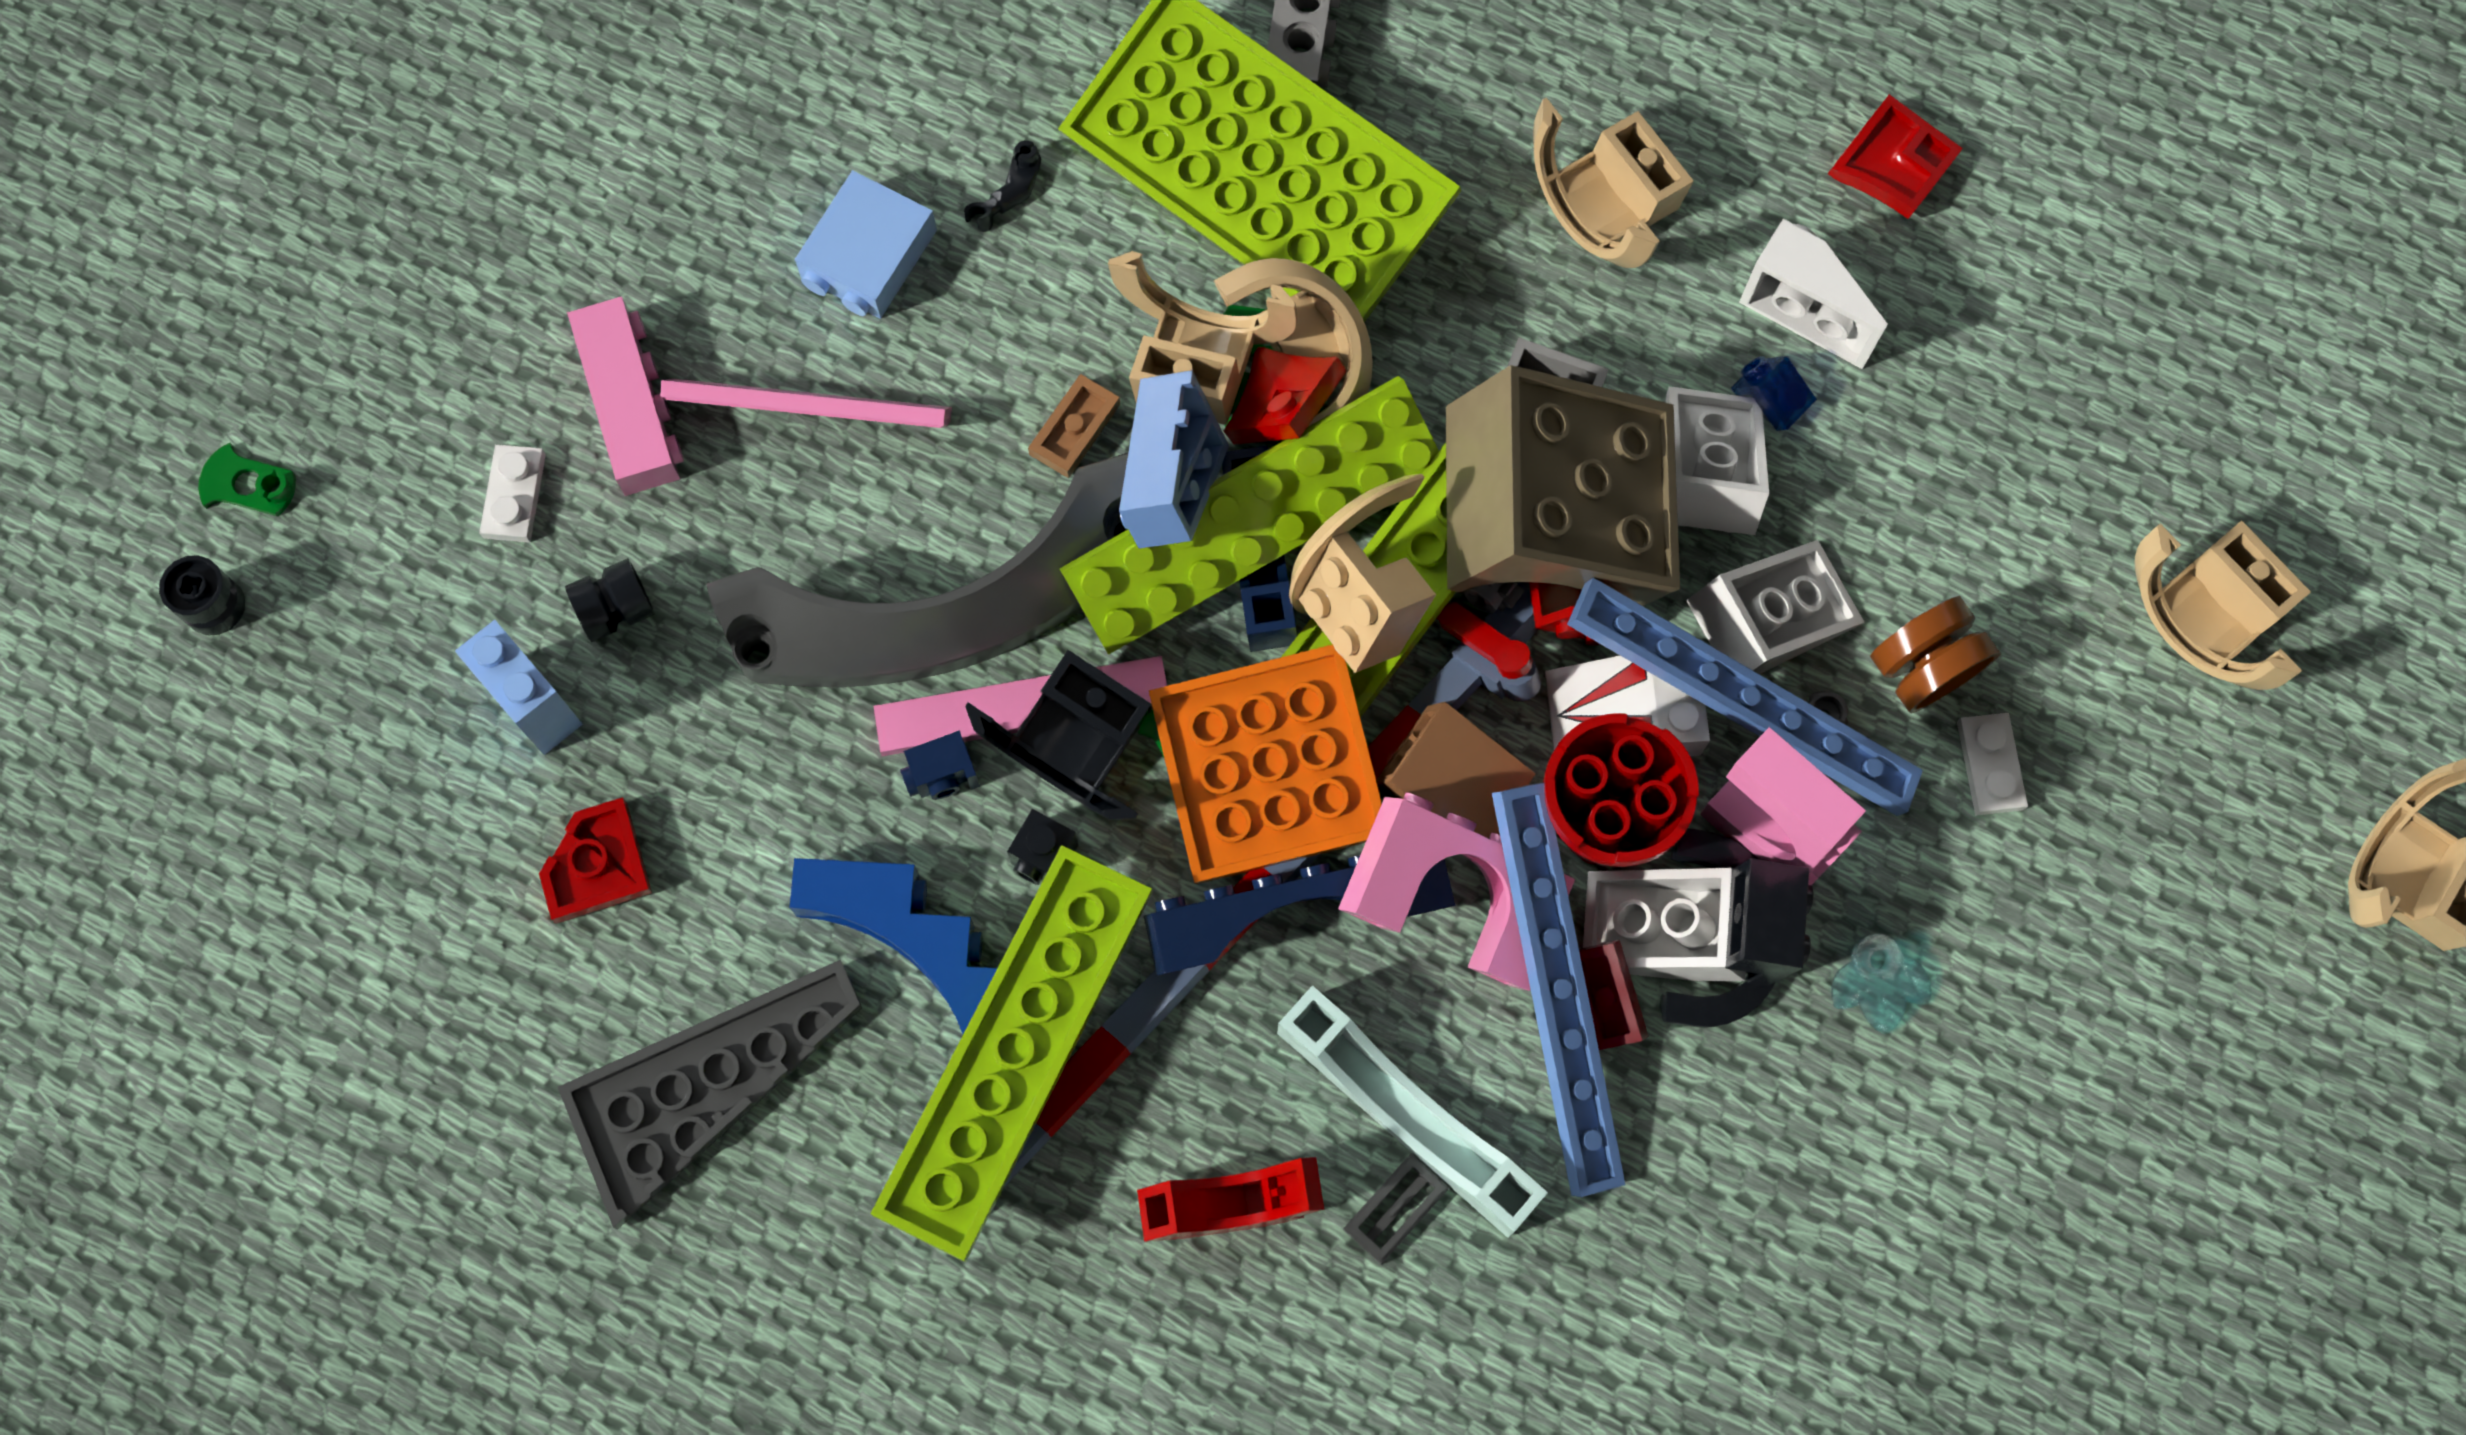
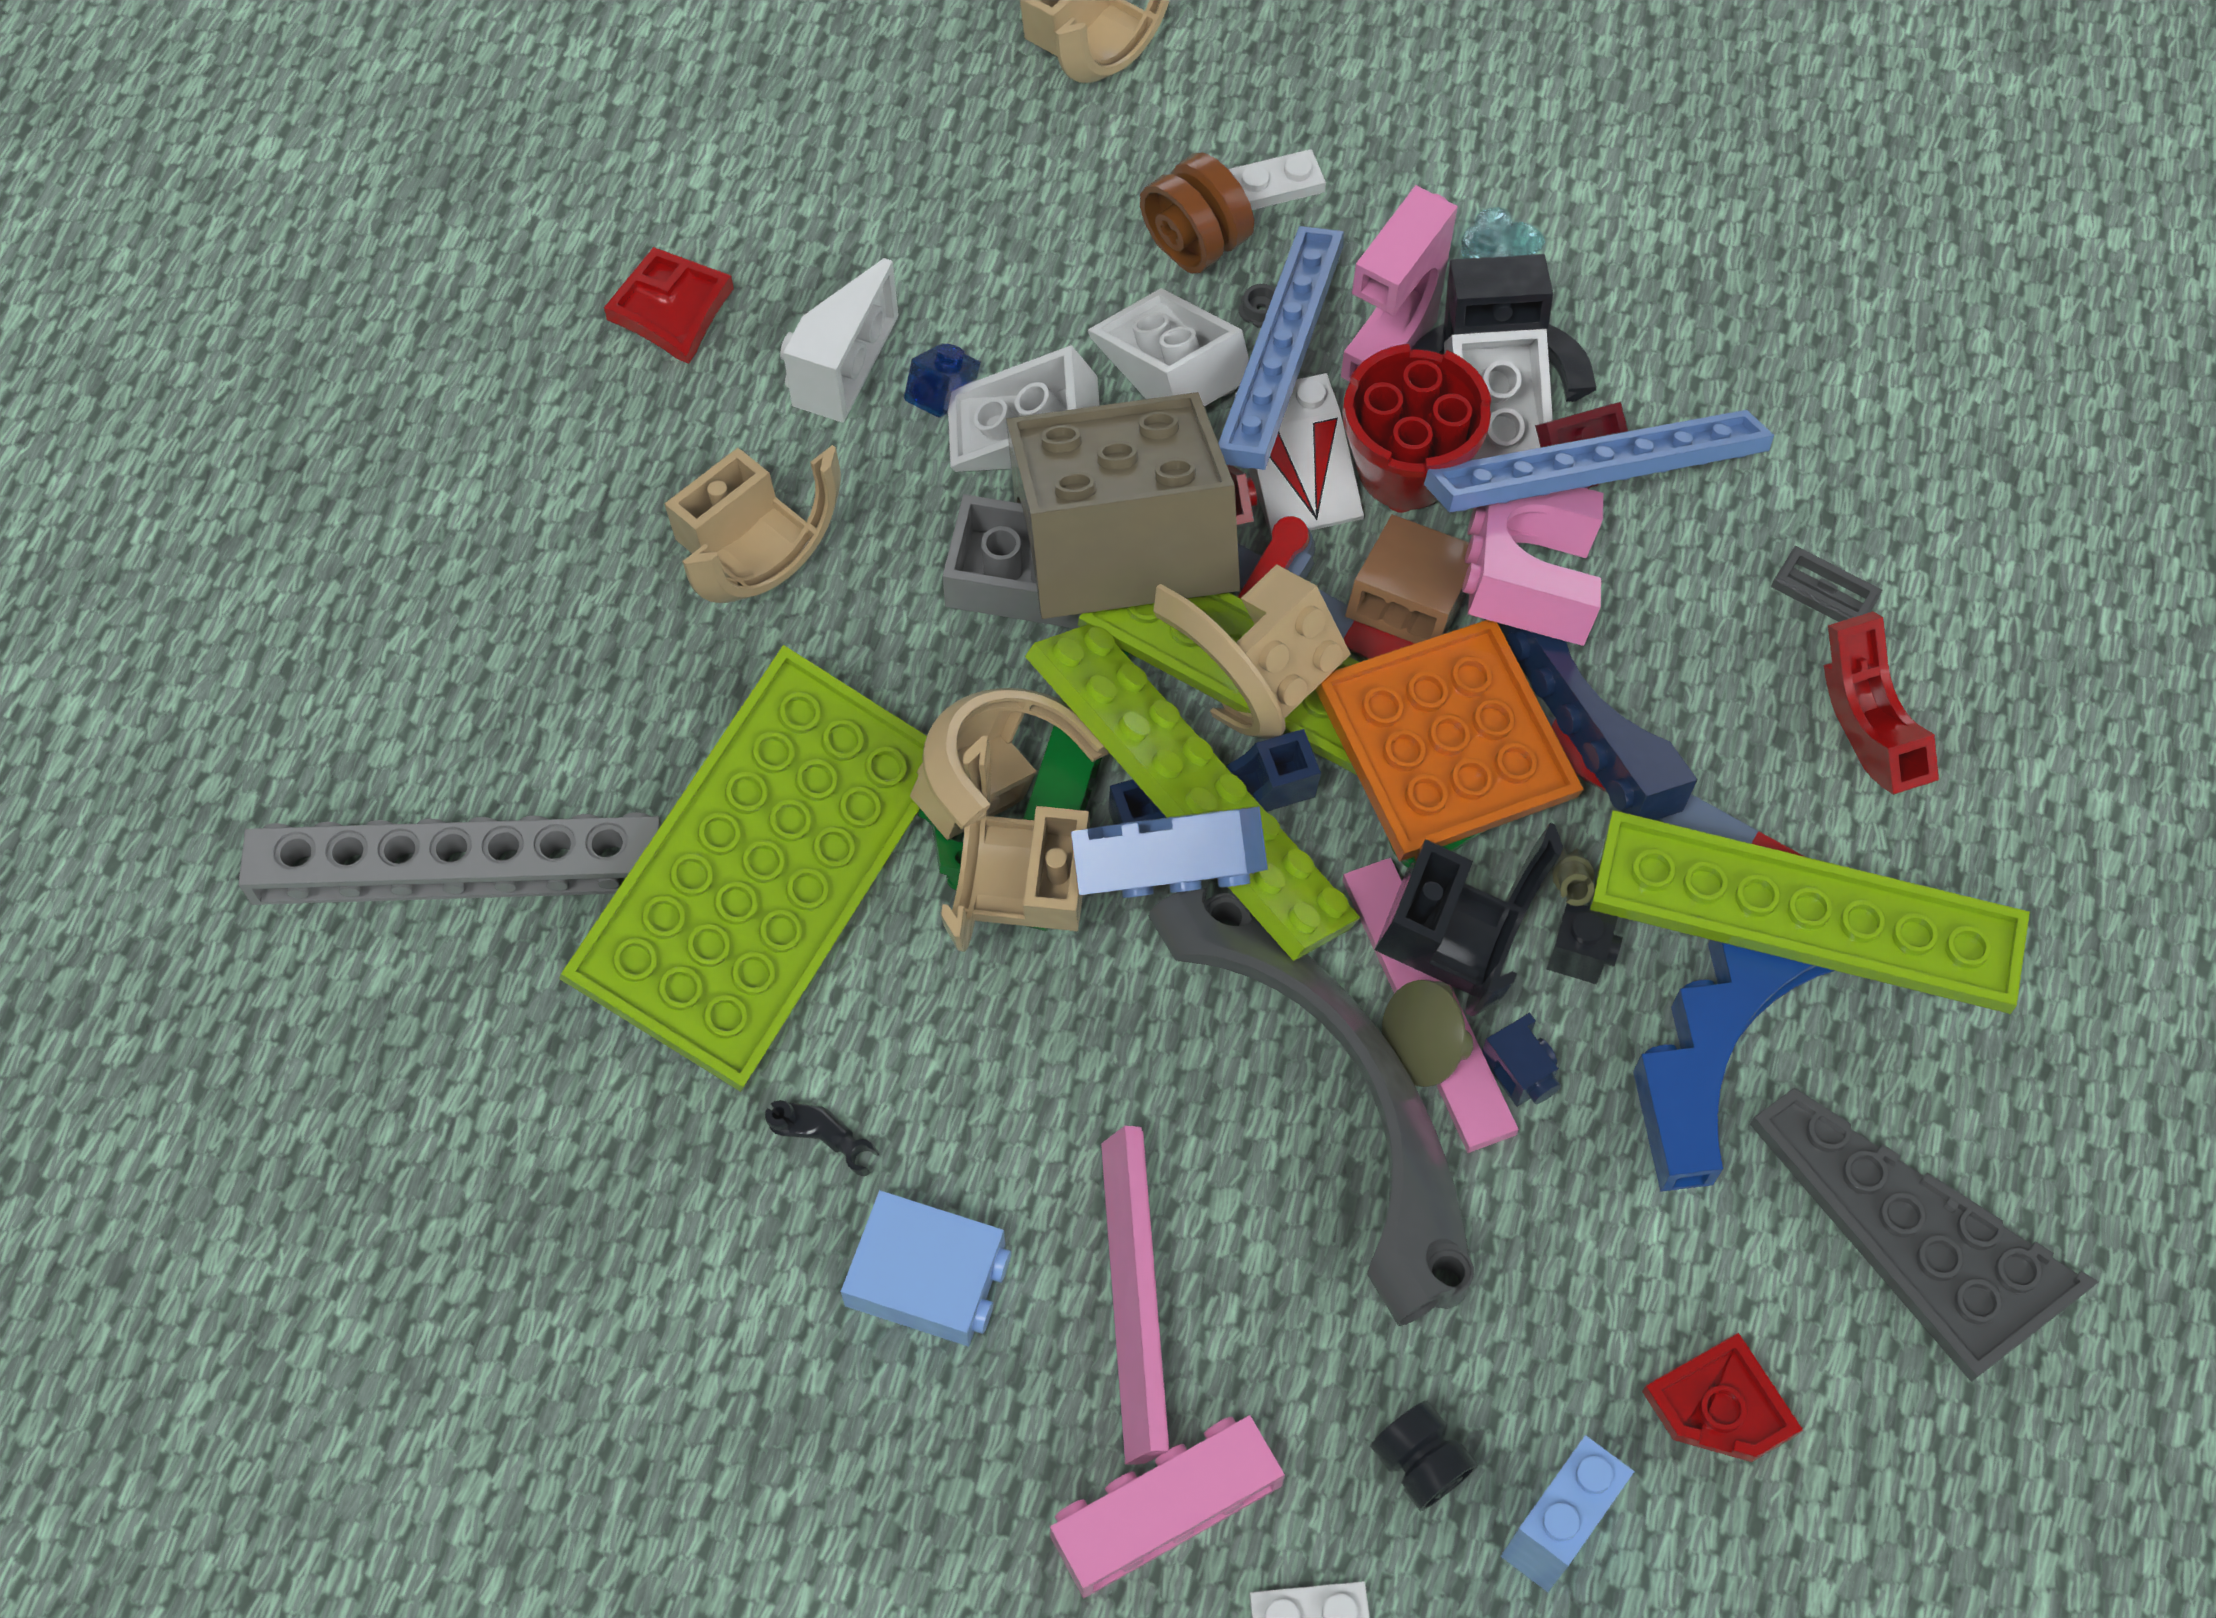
camera: 100 degrees left, 10 degrees down
(979, 682) = (1427, 1031): none -> olive dish
(1074, 426) = (1103, 1005): medium nougat plate -> none
(1107, 850) = (1574, 877): none -> olive axle
(1282, 396) = (1057, 767): red plate -> none
(1428, 1131) = (1744, 578): light aqua arch -> none

